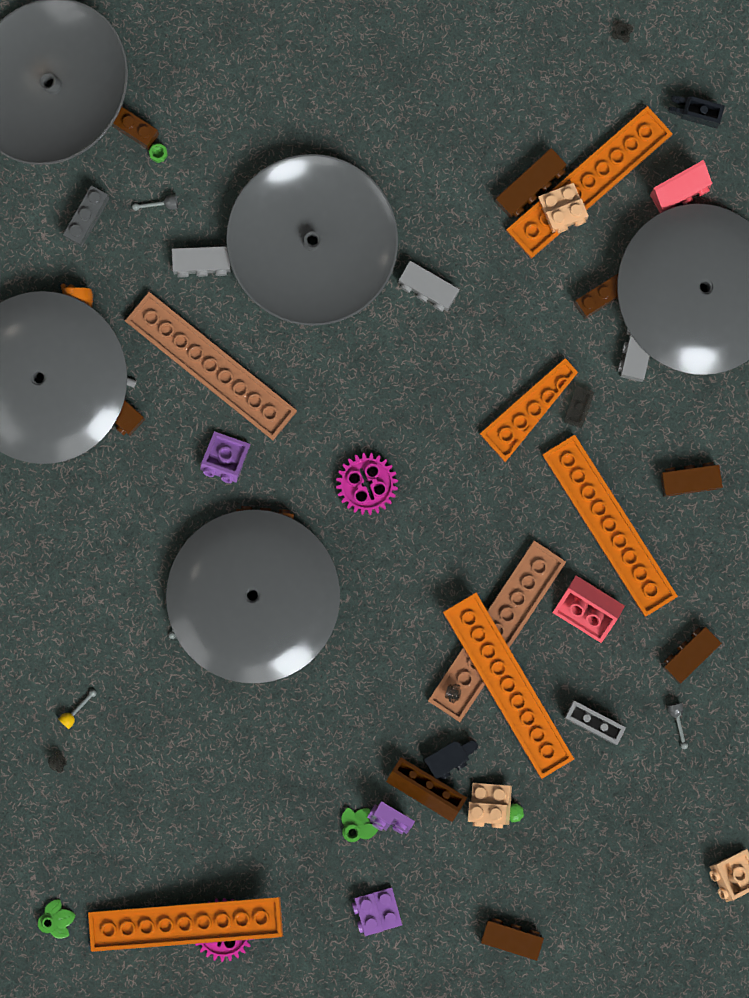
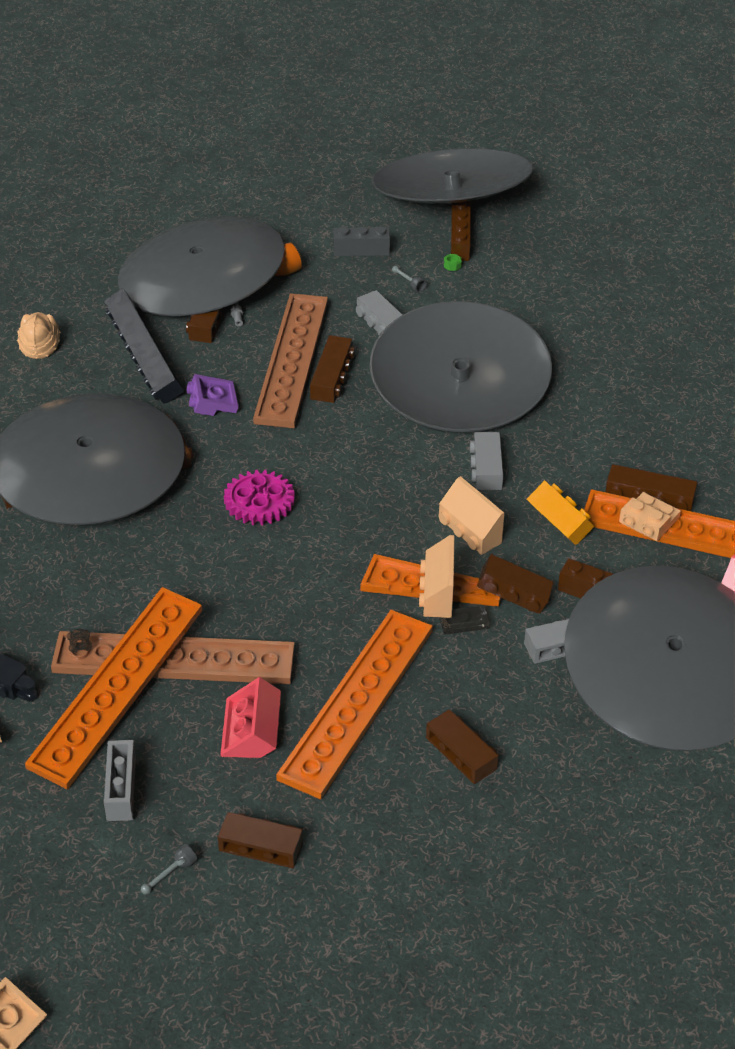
camera: 60 degrees right, 40 degrees down
(61, 563) = (38, 335): none -> light nougat head
(126, 482) = (143, 347): none -> black brick
(246, 342) = (331, 369): none -> reddish brown brick
(488, 342) = (472, 516): none -> light nougat slope
(519, 270) = (561, 512): none -> light orange brick
(545, 408) = (438, 579): none -> light nougat slope
(575, 354) = (515, 584): none -> reddish brown brick

